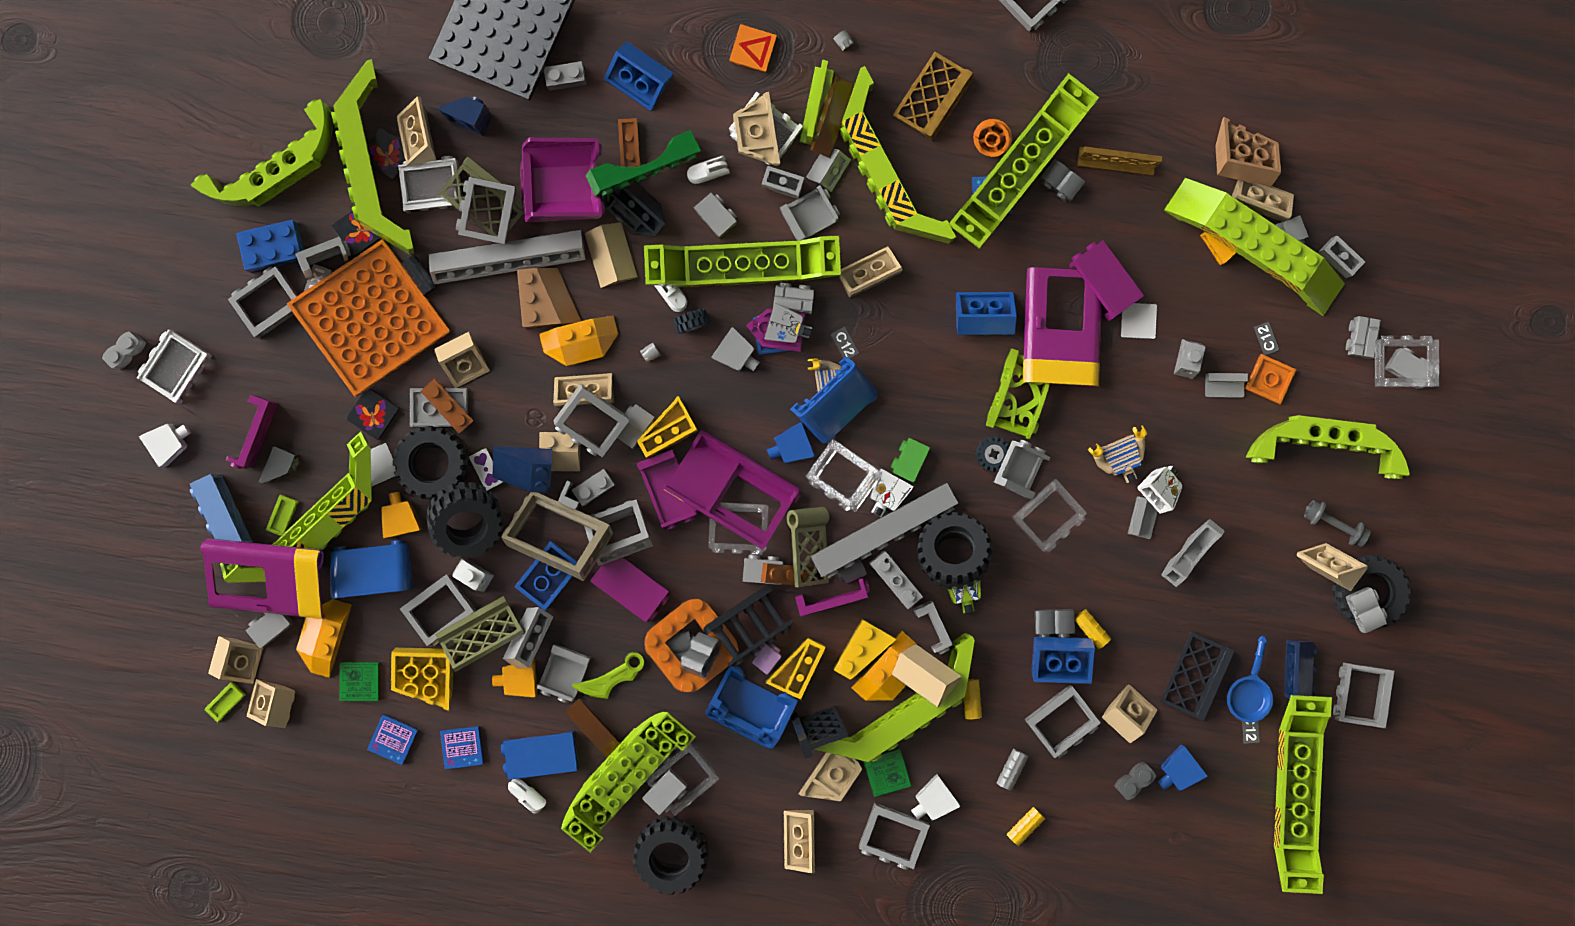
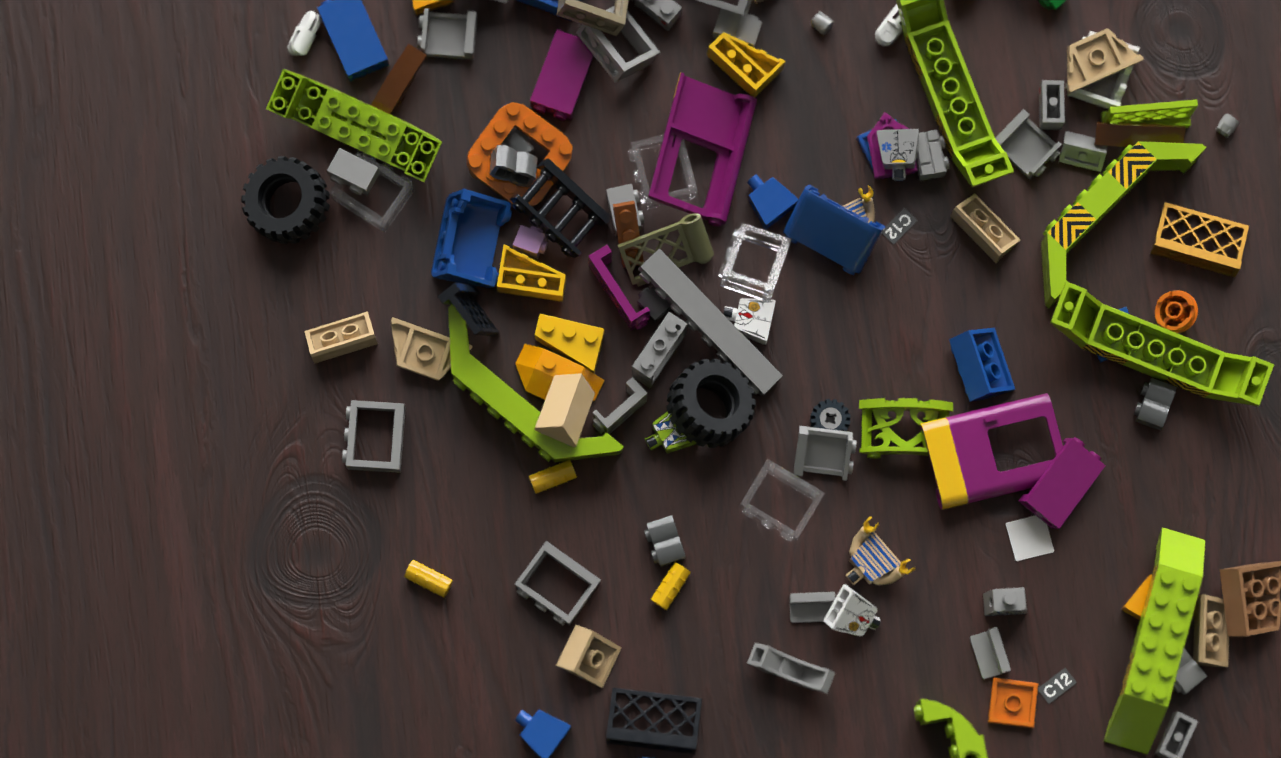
camera: 70 degrees right, 10 degrees down
(601, 686) = (447, 78): lime piece -> none
(656, 475) = (660, 90): magenta panel -> none
(691, 321) = (870, 53): black wheel -> none
(708, 170) = (1038, 24): white arm -> none
(715, 214) = (992, 47): light grey brick -> none
(735, 352) = (851, 110): light grey torso -> none
(753, 48) = (1184, 34): orange tile -> none
(887, 773) = (443, 409): green tile -> none
(910, 459) = (795, 331): bright green brick -> none
(934, 800) = (428, 469): white torso -> none
(1012, 769) = (487, 544): light grey axle -> none
(1062, 660) = (626, 560): blue brick -> none
(1117, 161) = (1198, 456): pearl gold fence -> none
(1138, 777) = (521, 687): dark grey brick -> none

